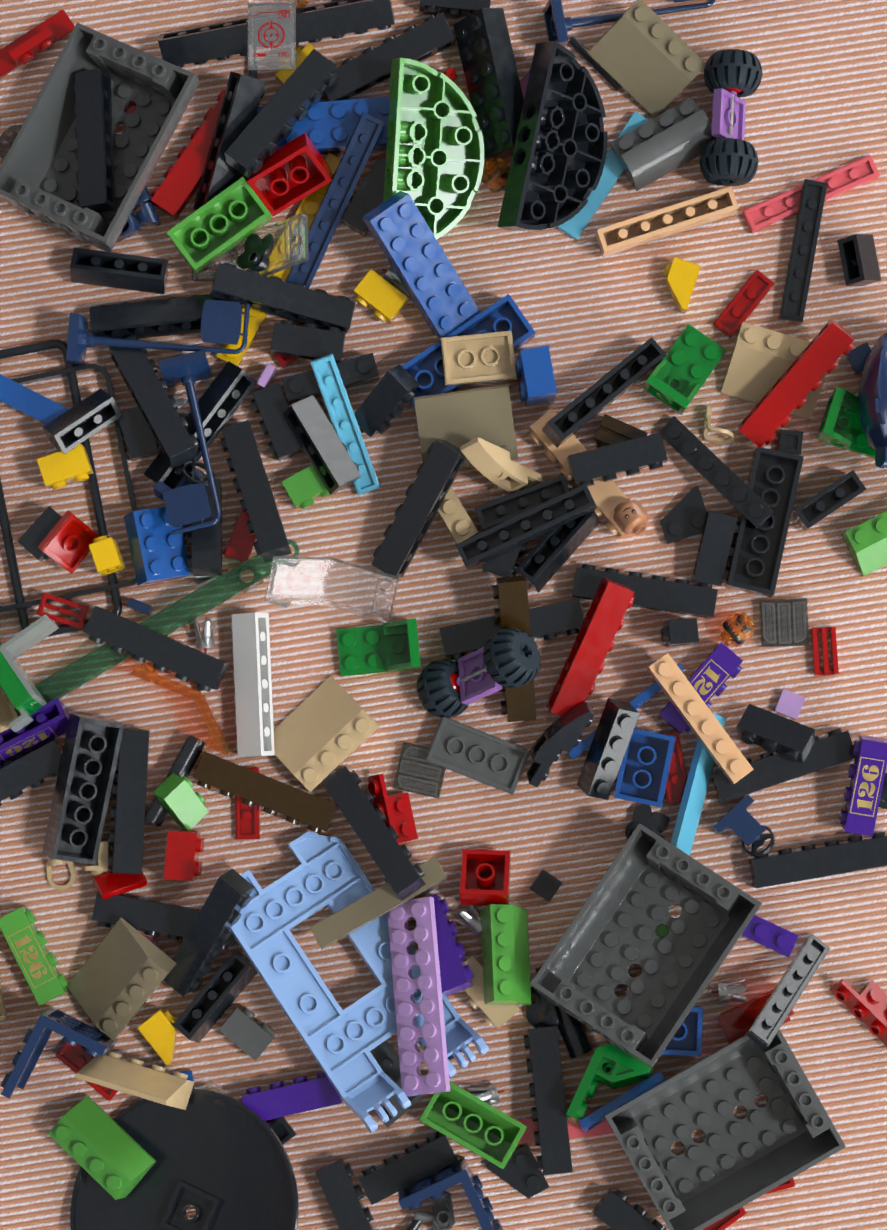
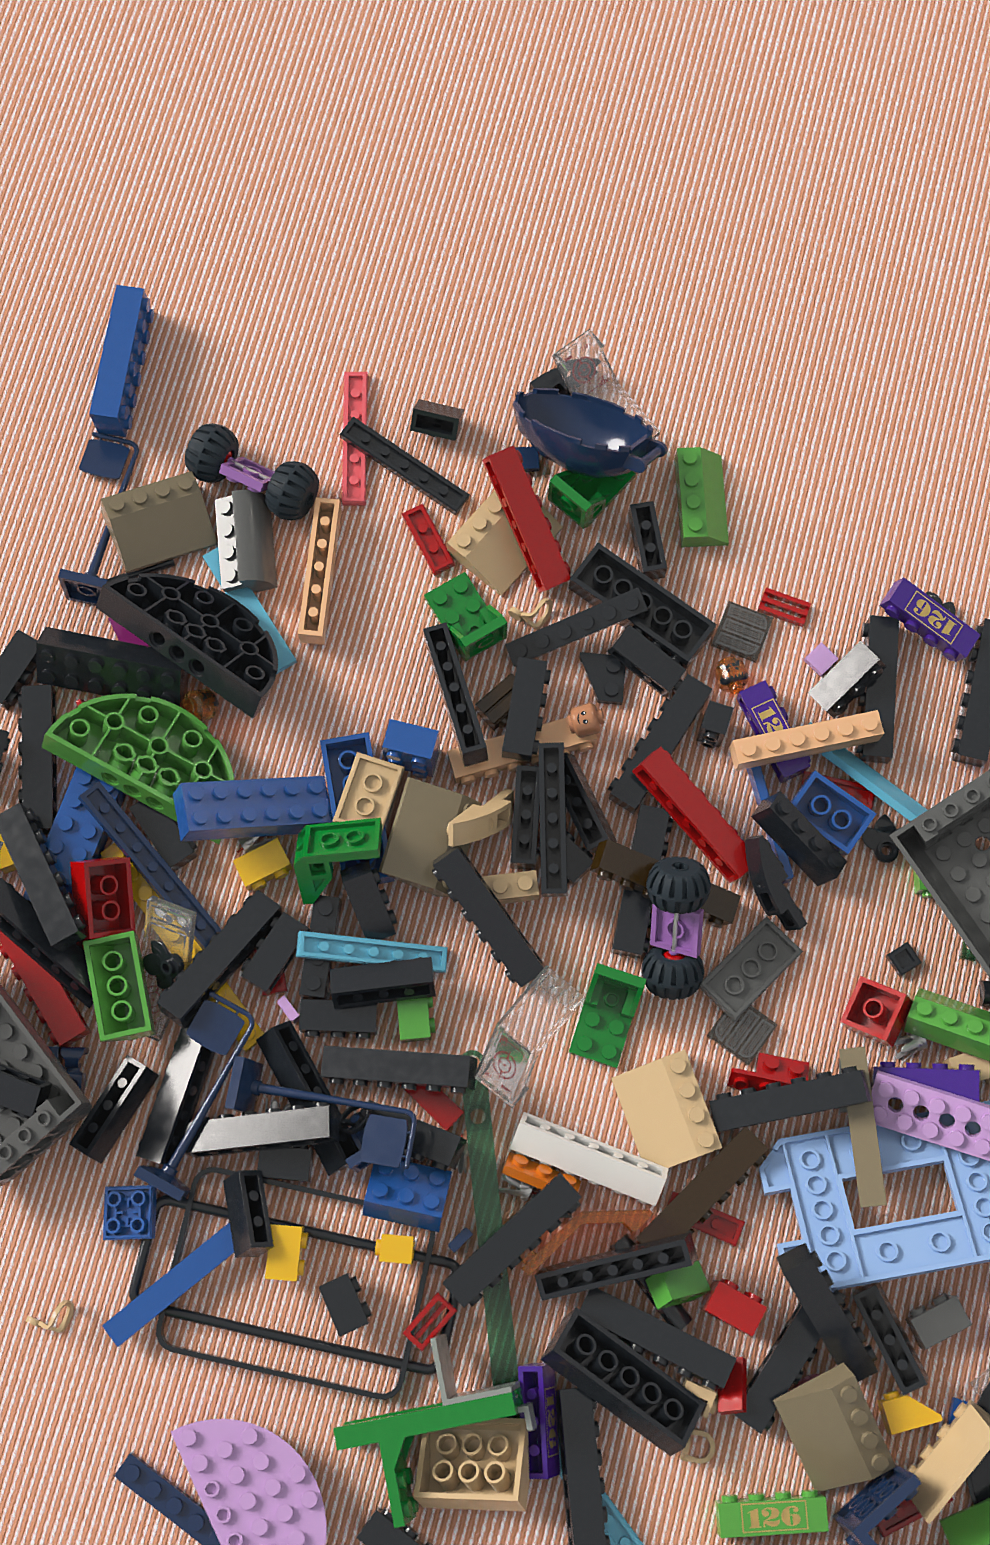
camera: 65 degrees left, 10 degrees down
(42, 324) = (129, 1212): none -> blue tile
(68, 542) = (364, 1282): red tile -> none
(172, 743) = (616, 1266): none -> black brick
(220, 644) = (533, 1173): none -> orange plate
(419, 347) = (332, 842): none -> green bracket
(681, 281) = (382, 583): yellow slope -> none
(746, 828) = (922, 747): dark blue piece -> none
(790, 441) = (575, 553): black tile -> none

